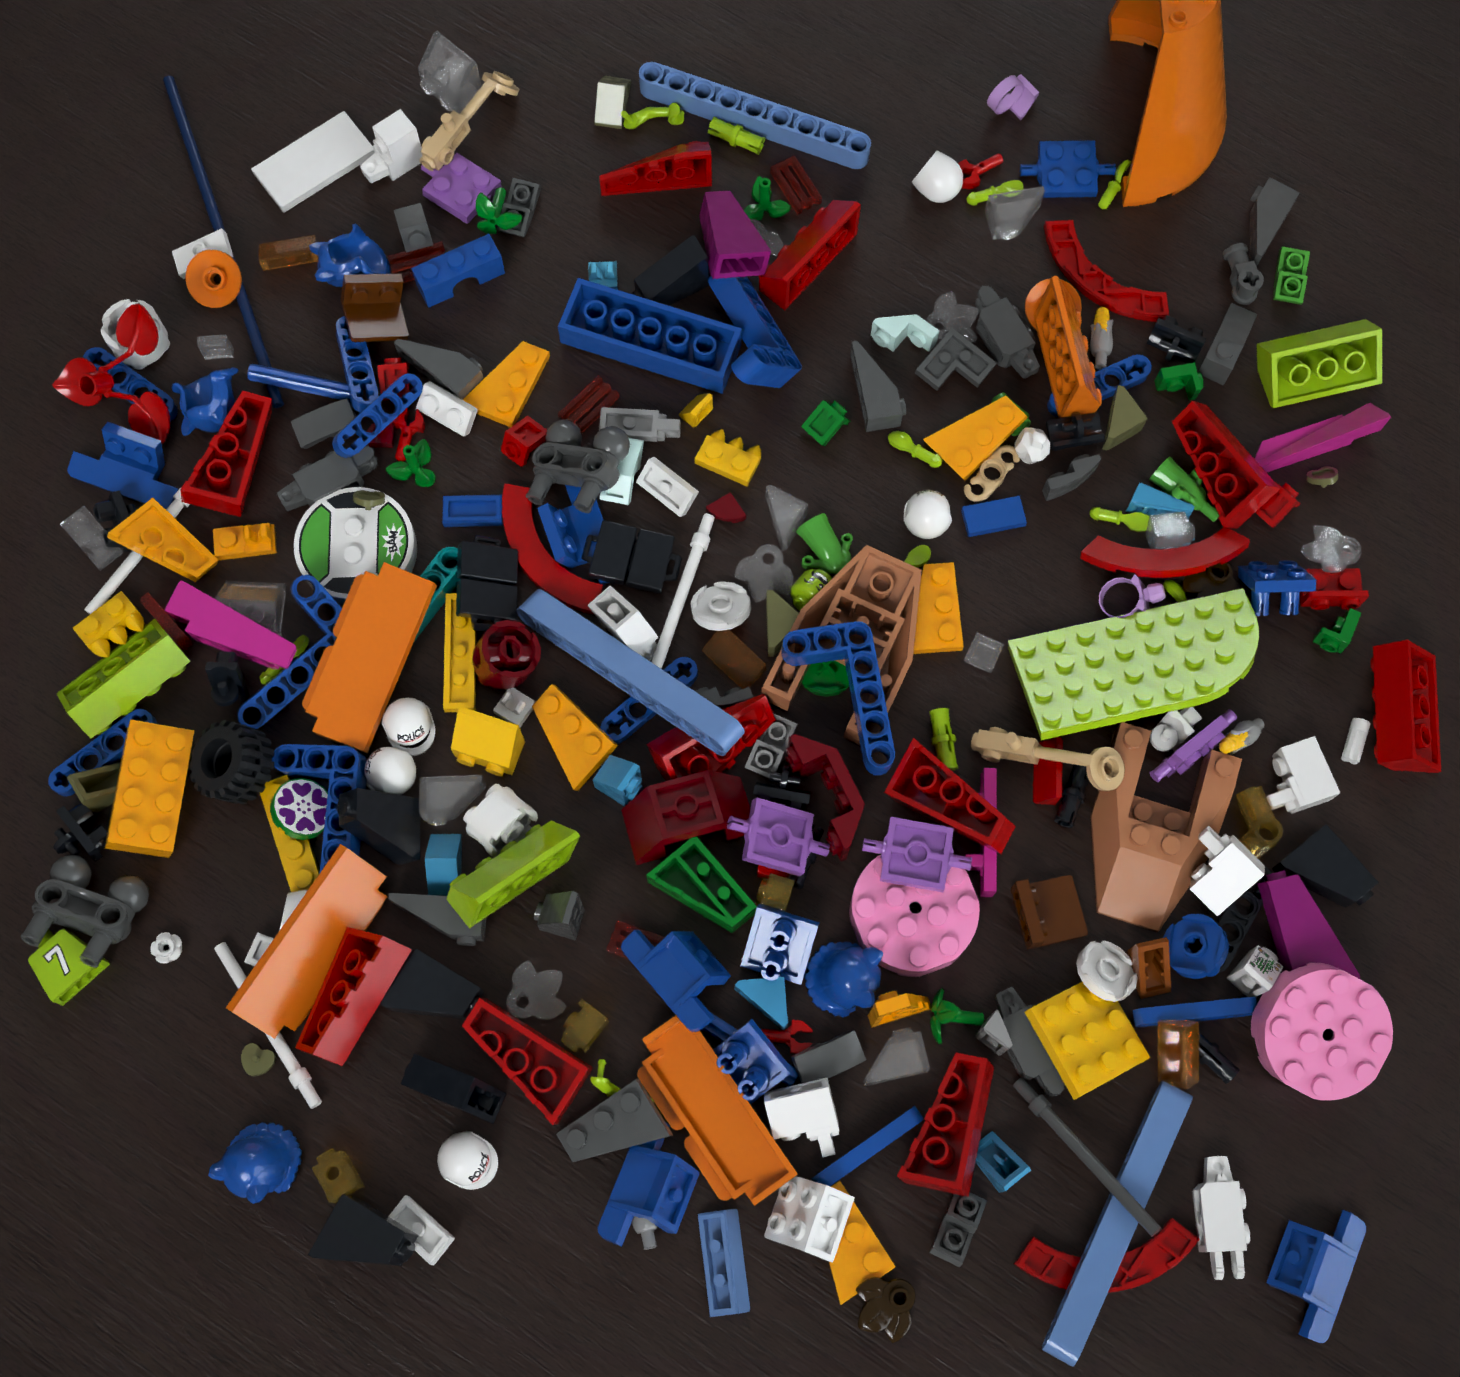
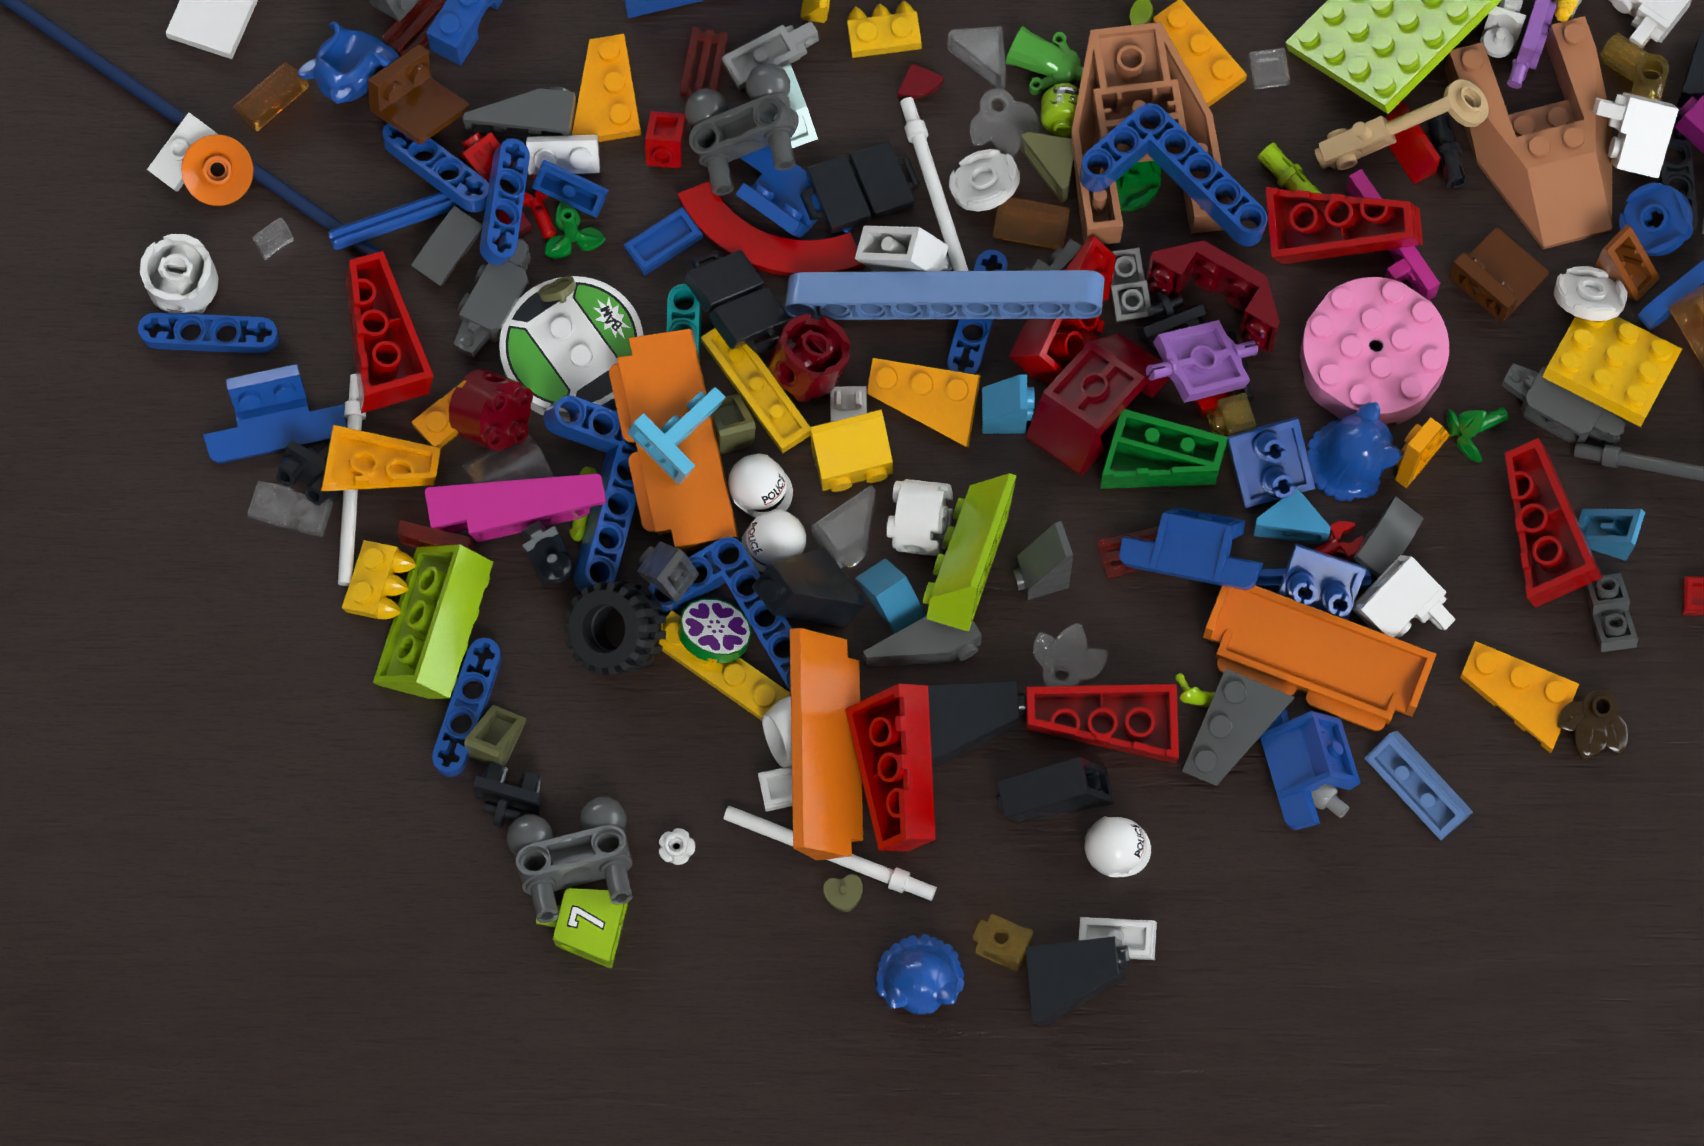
camera: 30 degrees left, 0 degrees up
(86, 385) = (158, 358): red plant -> none
(149, 789) = (550, 706): light orange brick -> none
(206, 401) = (311, 295): blue hair -> none
(262, 554) = (491, 410): none -> dark red brick
(285, 746) = (667, 570): none -> dark grey slope
(367, 649) = (663, 443): none -> medium azure bracket
(422, 667) = (733, 425): none -> olive slope
(431, 435) = (570, 188): none -> blue slope
(583, 1027) = (1139, 656): clear yellow brick -> none
(667, 486) = (845, 96): white plate -> none
(809, 1217) = (1471, 687): white bracket -> none
(869, 1147) = (1481, 596): blue beam -> none
(899, 1058) = (1453, 496): clear slope -> none
(917, 854) = (1346, 292): medium lavender plate -> none
(994, 1034) = (1528, 415): light grey slope -> none

